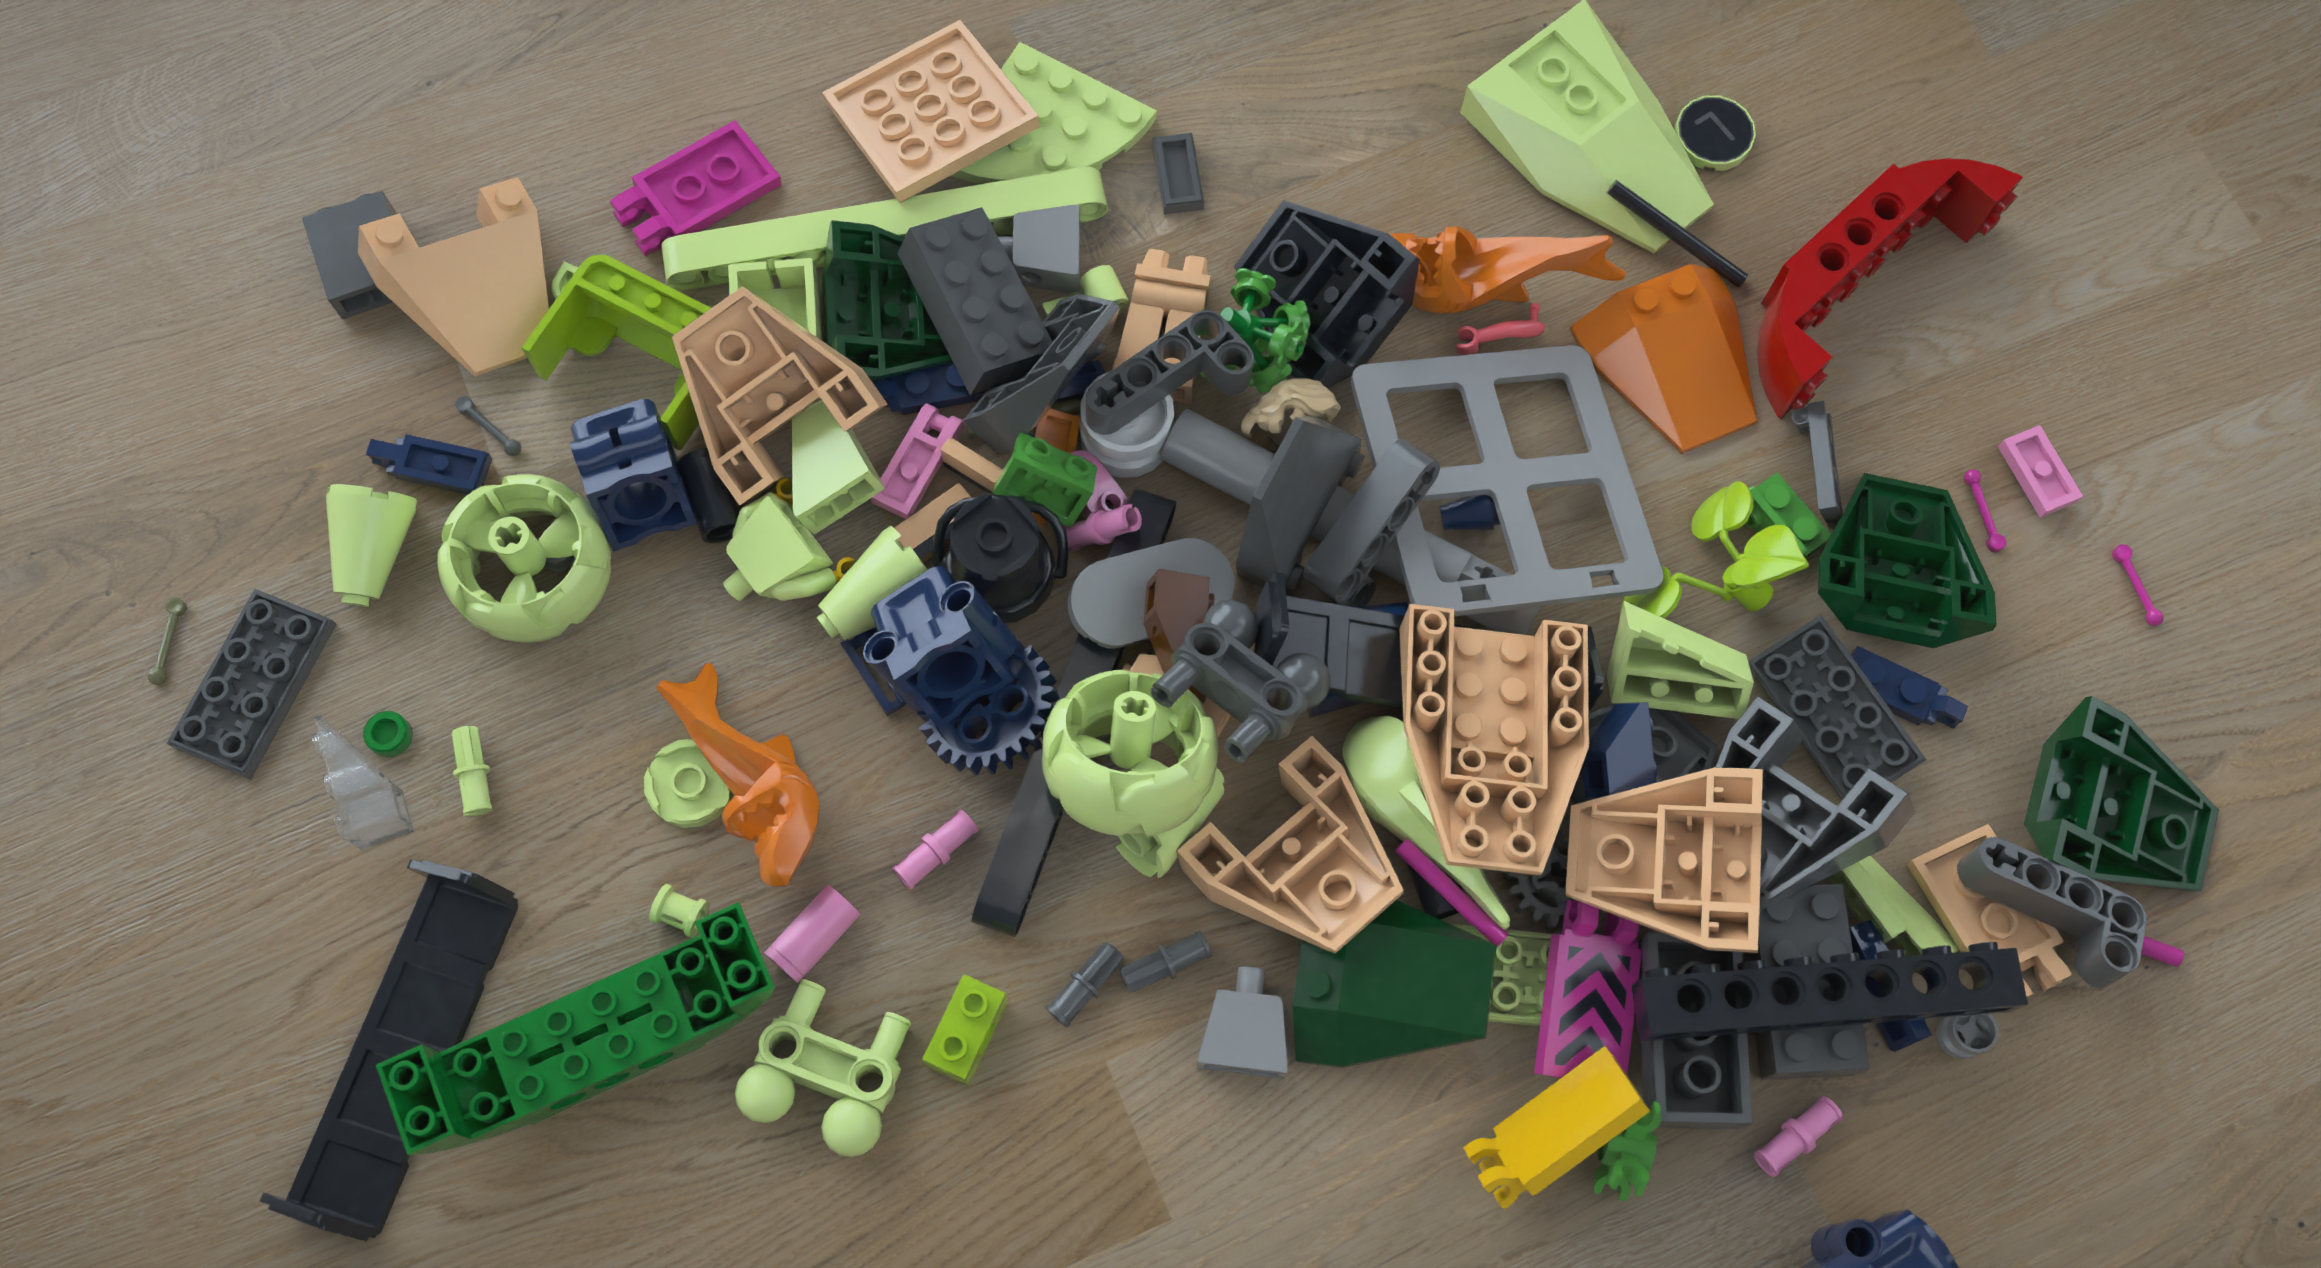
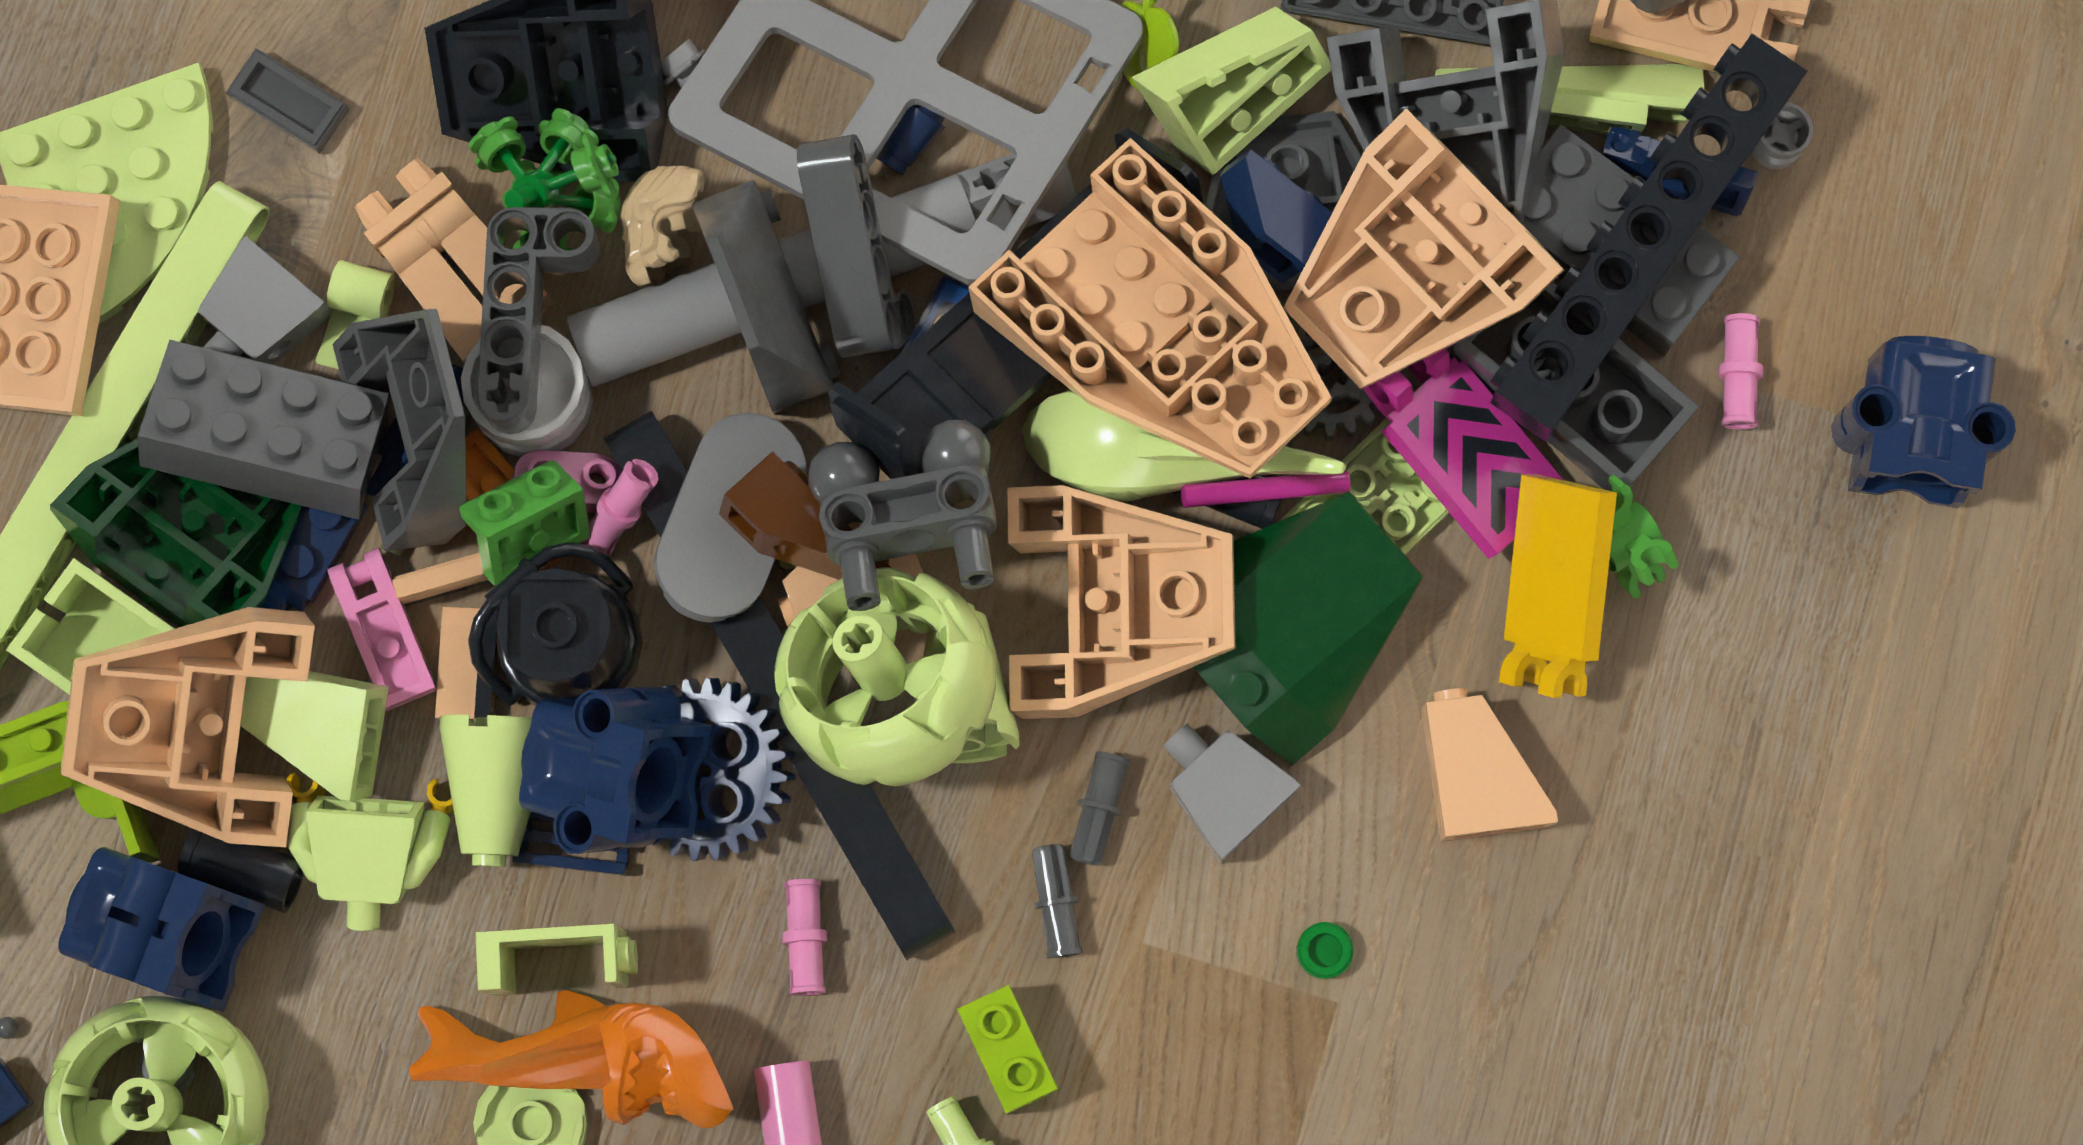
camera: 45 degrees left, 10 degrees up
(770, 678) = (497, 953): none -> yellowish green panel
(1197, 1181) = (1324, 950): none -> green tile
(1392, 352) = (681, 63): none -> light grey plate
(1395, 1184) = (1478, 771): none -> light nougat slope

